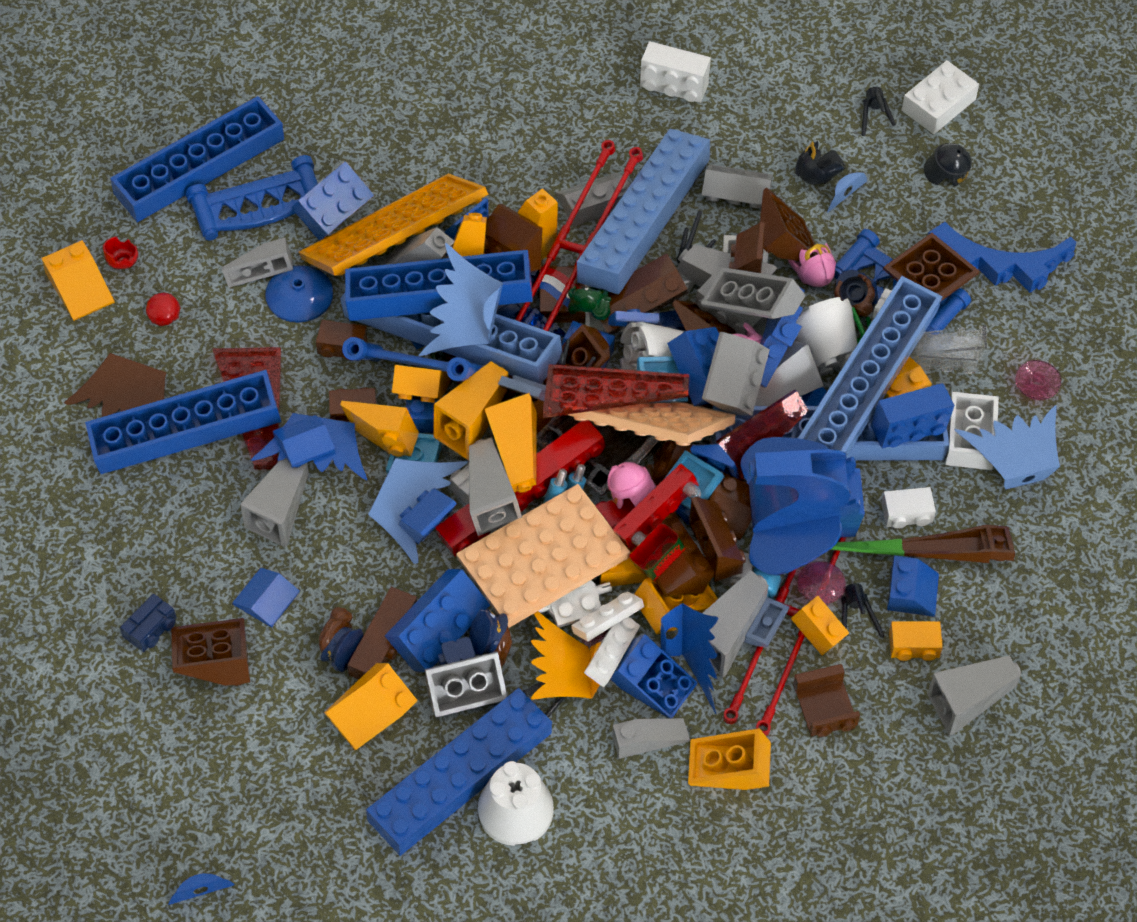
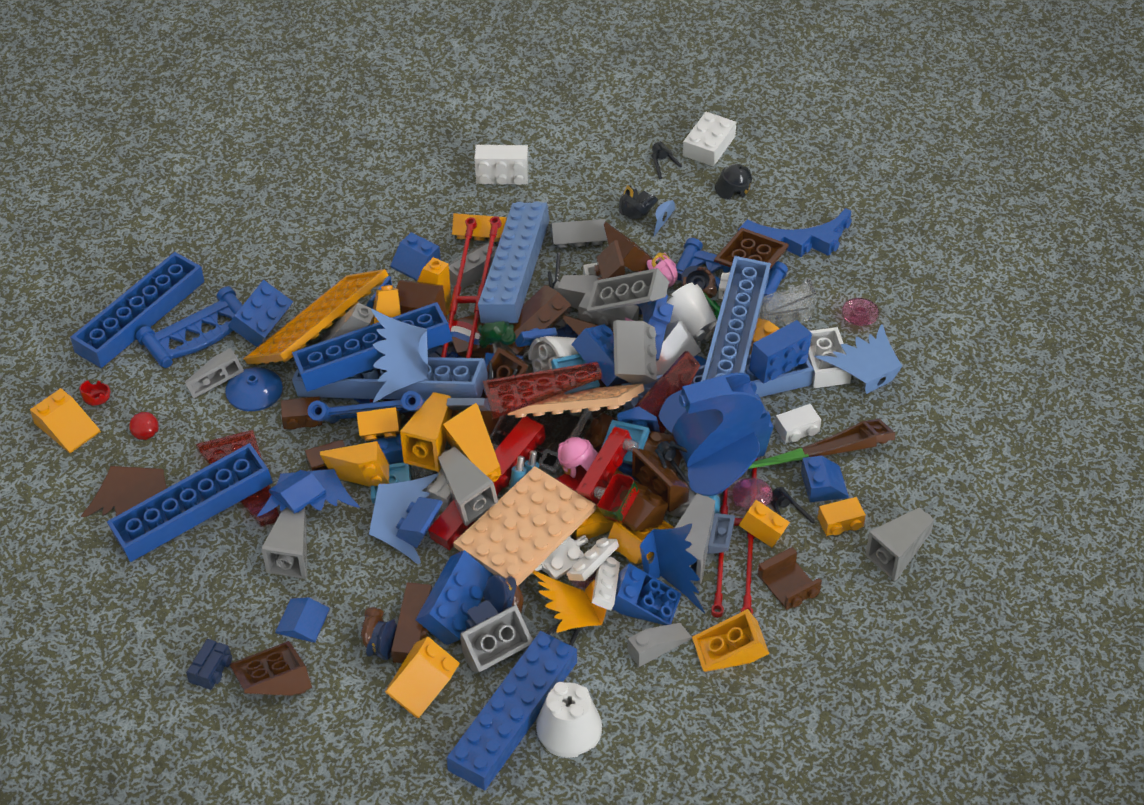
camera: 15 degrees left, 10 degrees down
(535, 169) = (413, 255): none -> blue slope
(623, 142) = (482, 229): none -> light orange slope
(736, 507) = (667, 451): none -> black plant

